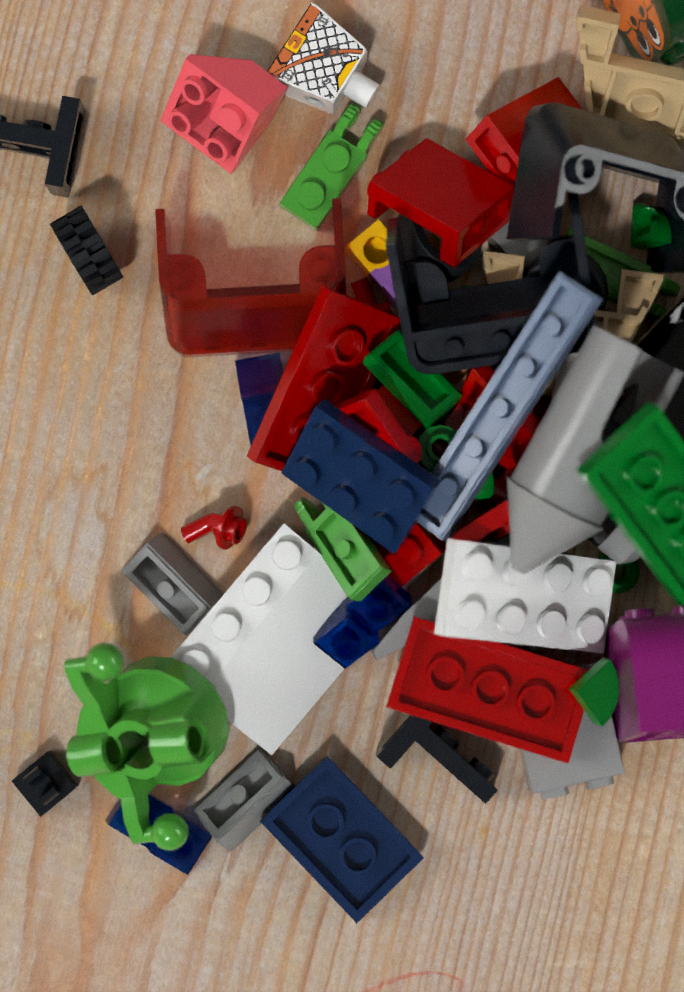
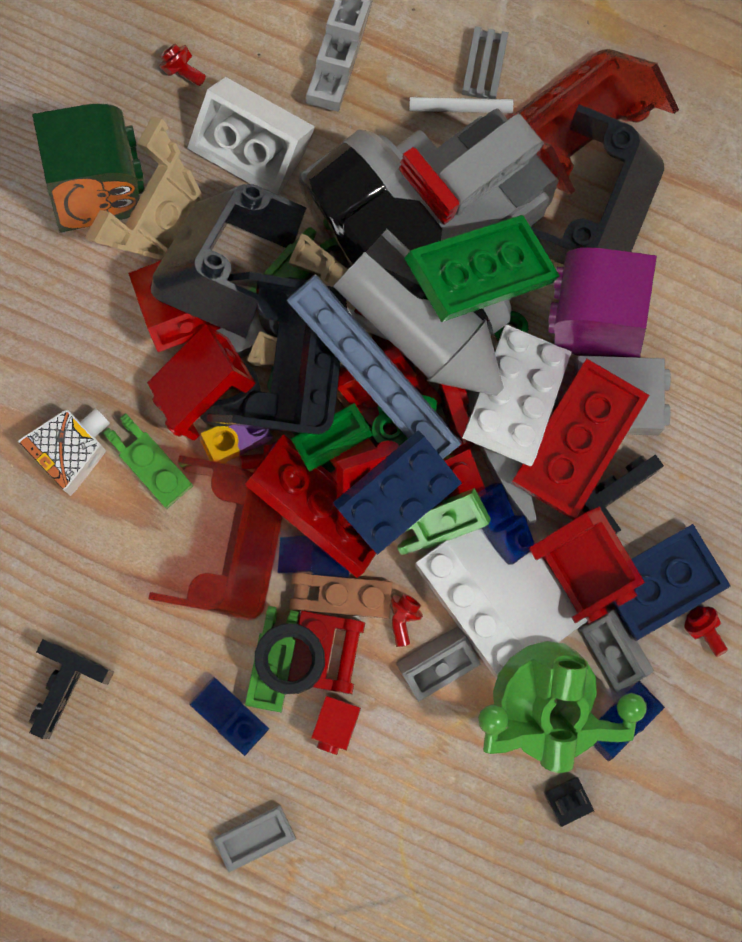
camera: 70 degrees left, 5 degrees down
(47, 348) = (229, 716): none -> clear blue slope
(66, 477) = (335, 725): none -> red brick
(86, 250) = (163, 663): black tyre -> none
(108, 371) = (263, 650): none -> black tyre
(122, 382) = (279, 660): none -> bright green hinge
(152, 429) = (324, 628): none -> red plate
(222, 106) = (79, 531): coral slope -> none
(225, 446) = (342, 596): none -> nougat plate
(301, 903) = (702, 622): none -> red plate
(336, 741) = (590, 564): none -> red panel
(598, 691) = (601, 359): green tile -> none
(649, 227) = (259, 237): green tile -> none

